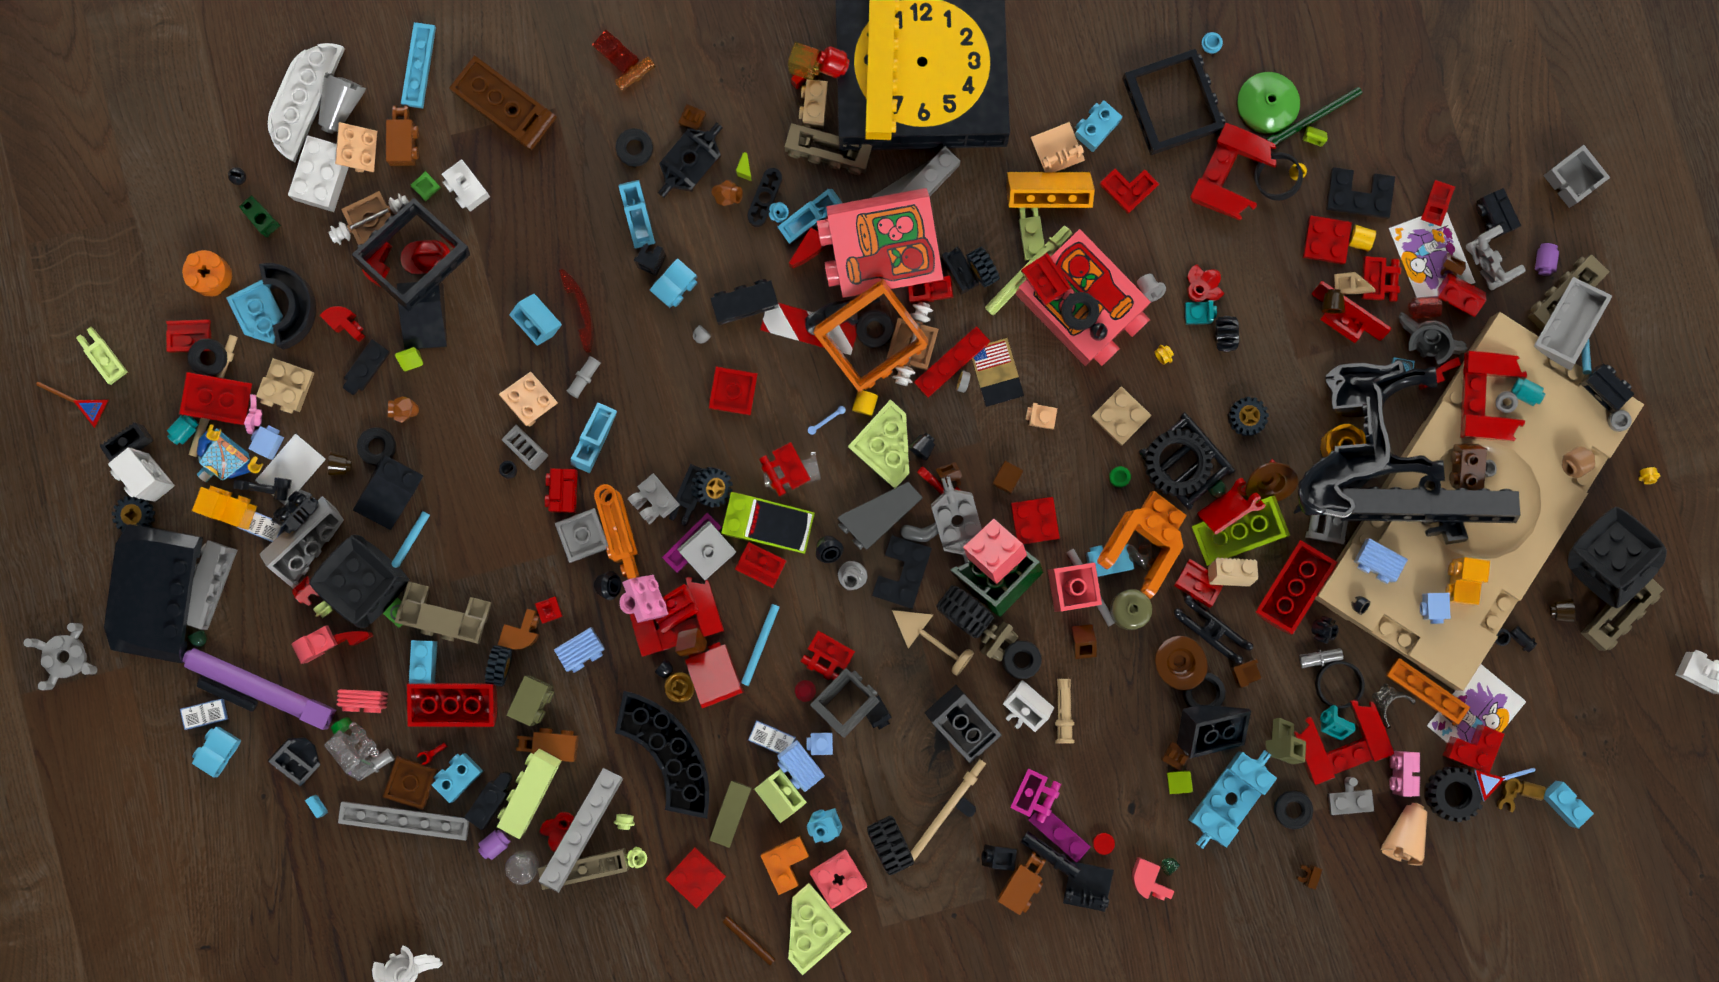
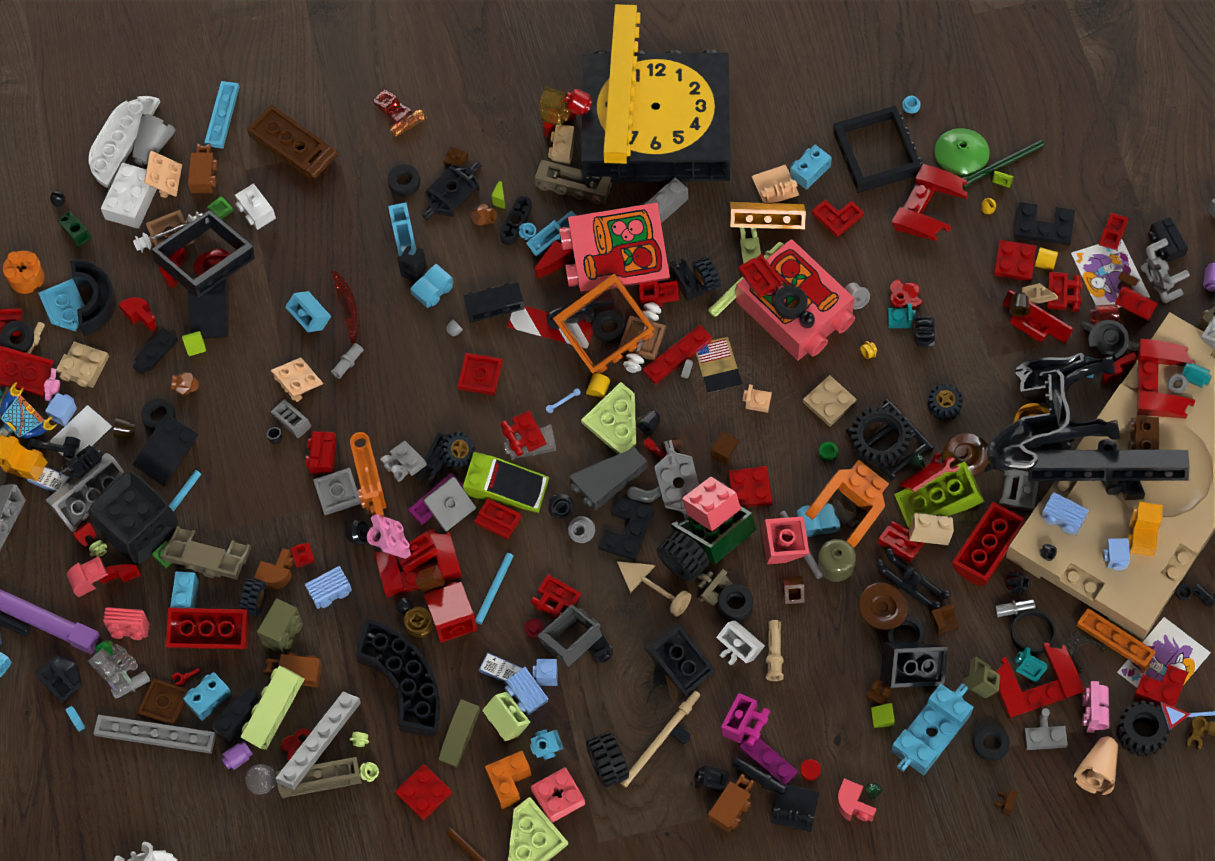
camera: 10 degrees right, 20 degrees down
(593, 438) = (352, 410): medium azure slope -> none
(1279, 155) = (976, 220): black tyre -> none
(1490, 468) = (1165, 442): light grey hinge -> none

